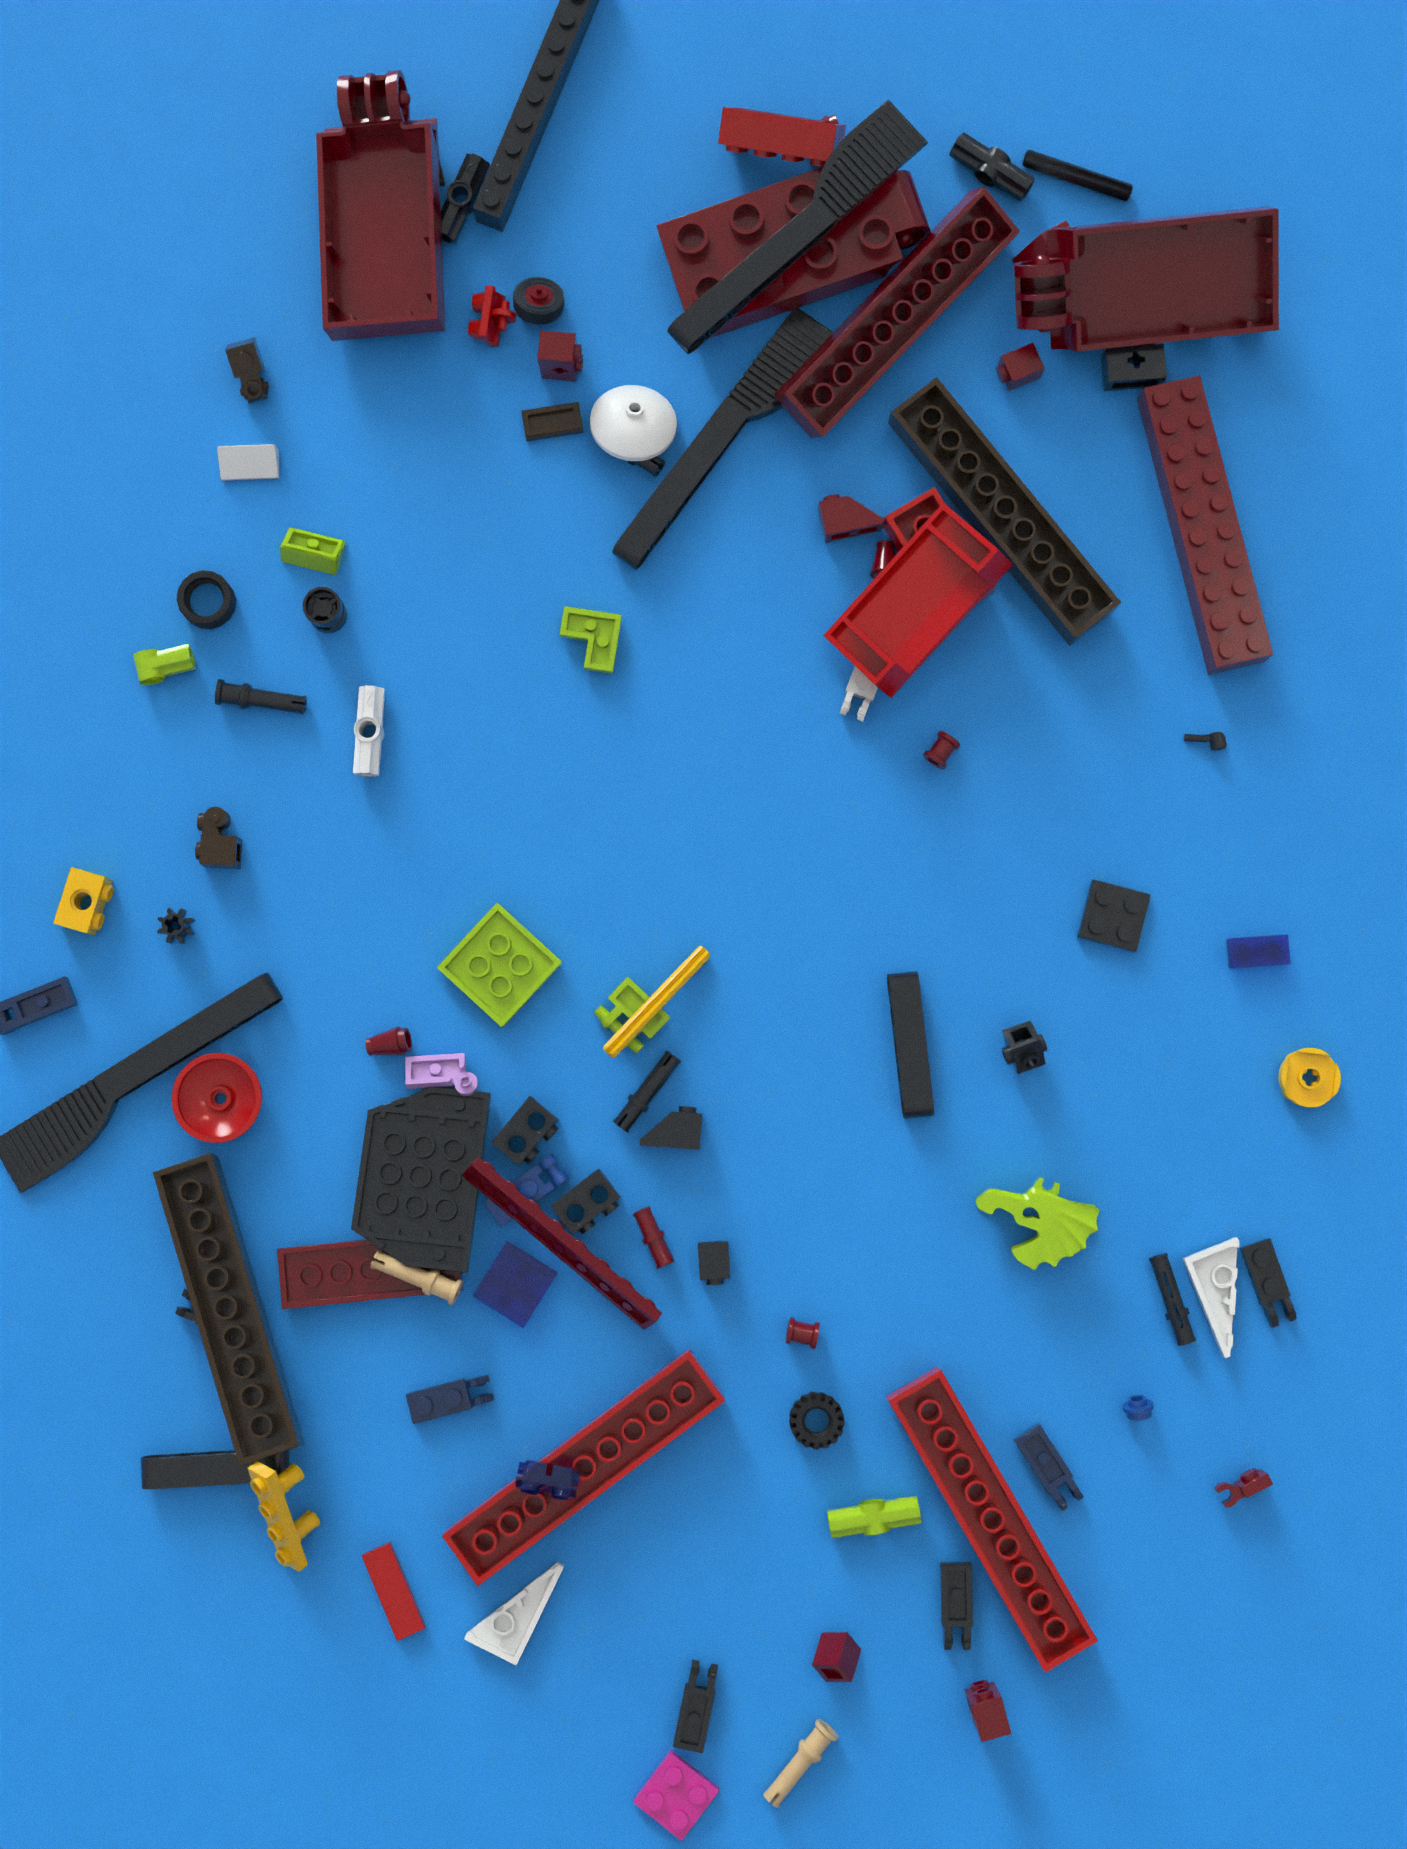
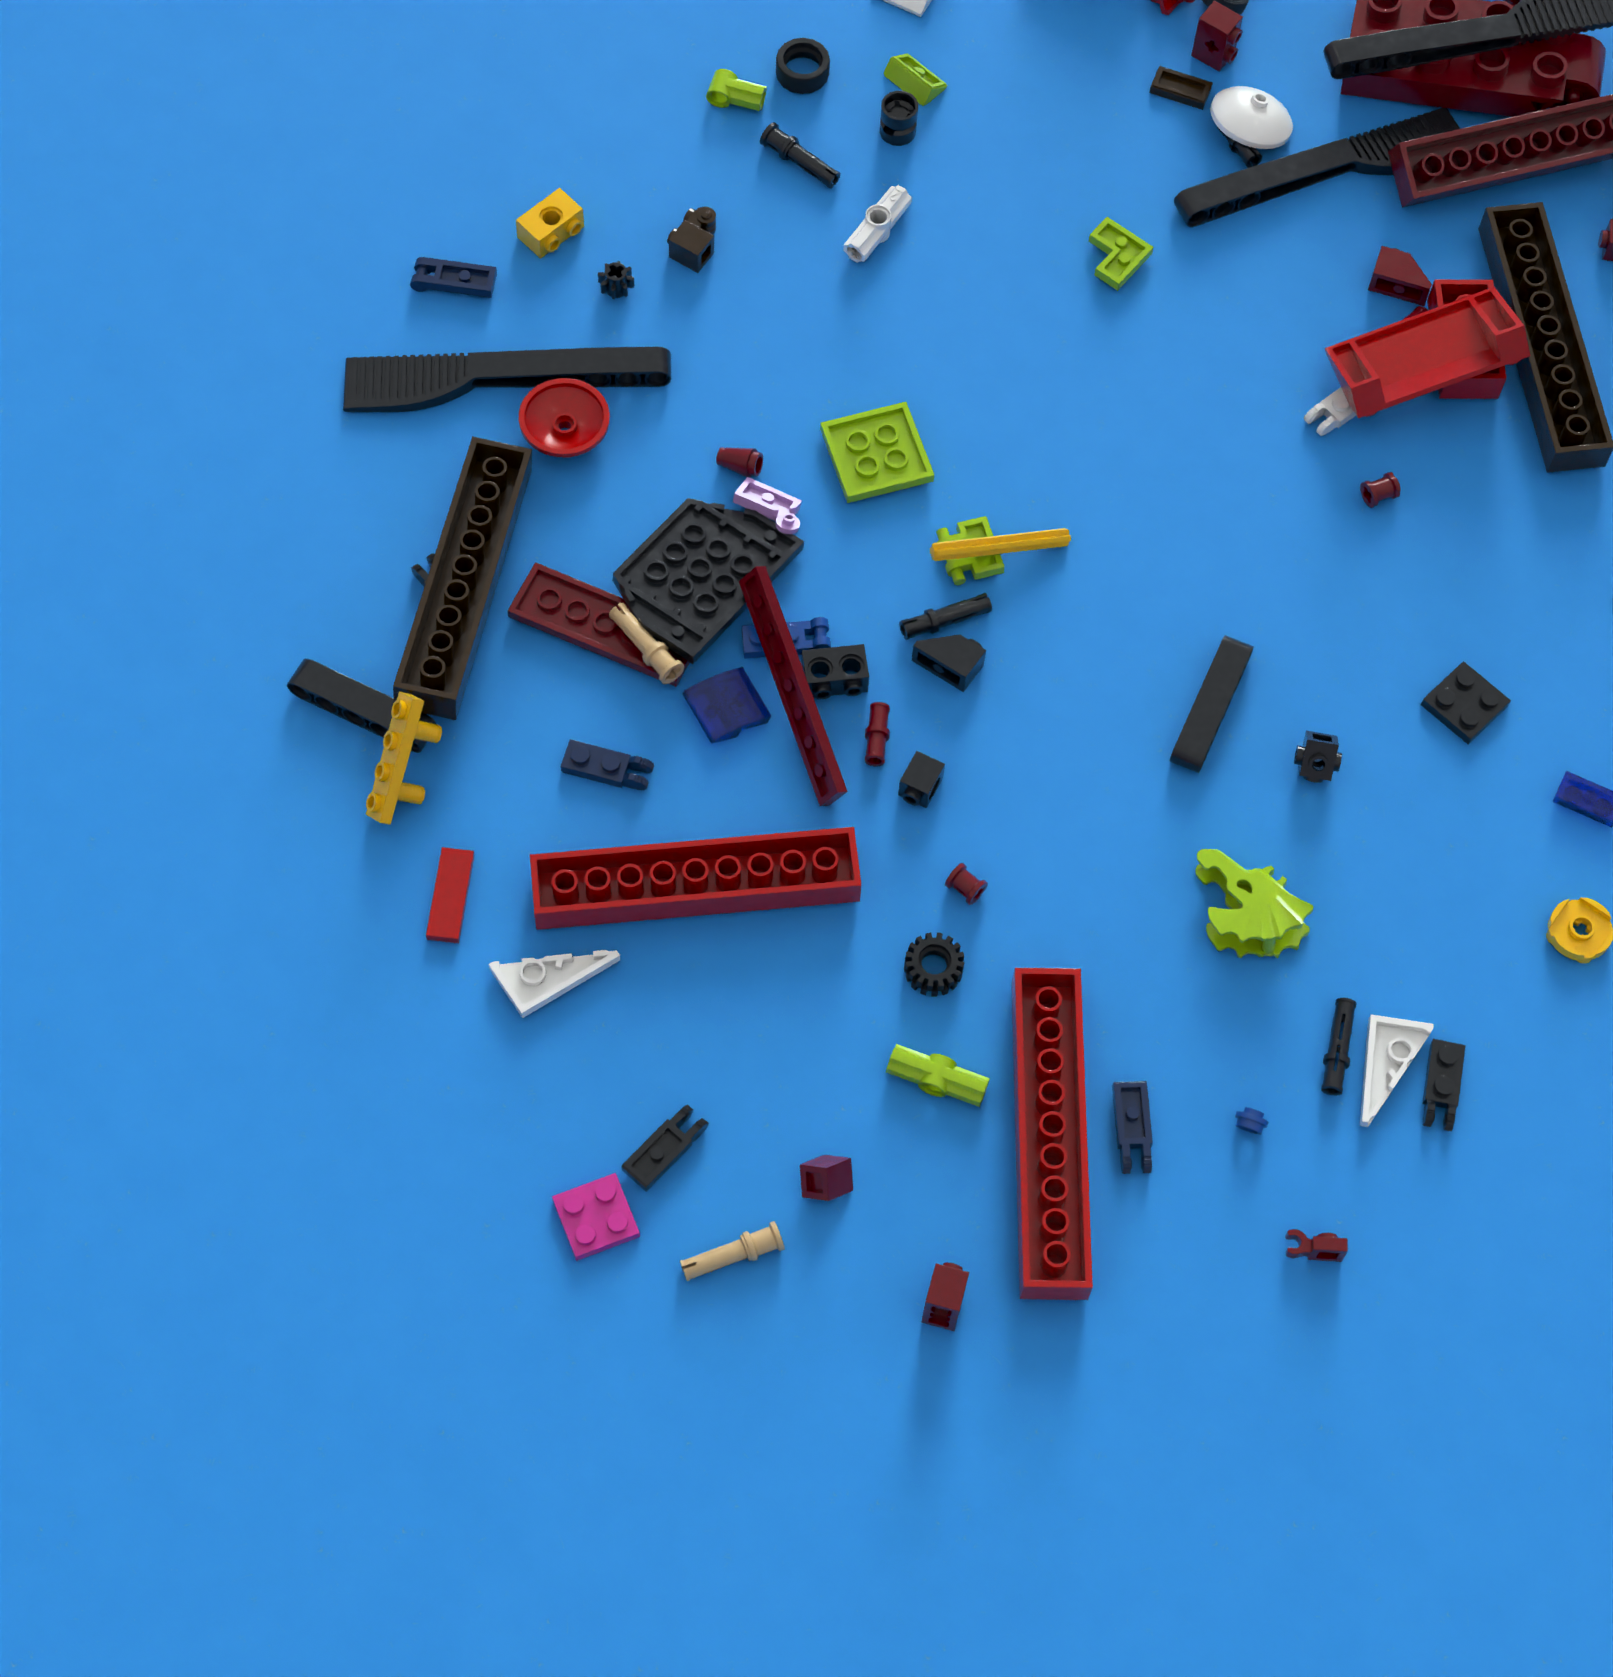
camera: 25 degrees right, 20 degrees down
(520, 1126) = (813, 581): black brick -> none
(536, 1480) = (647, 850): clear blue hinge -> none
(956, 1601) = (972, 1194): black hinge -> none

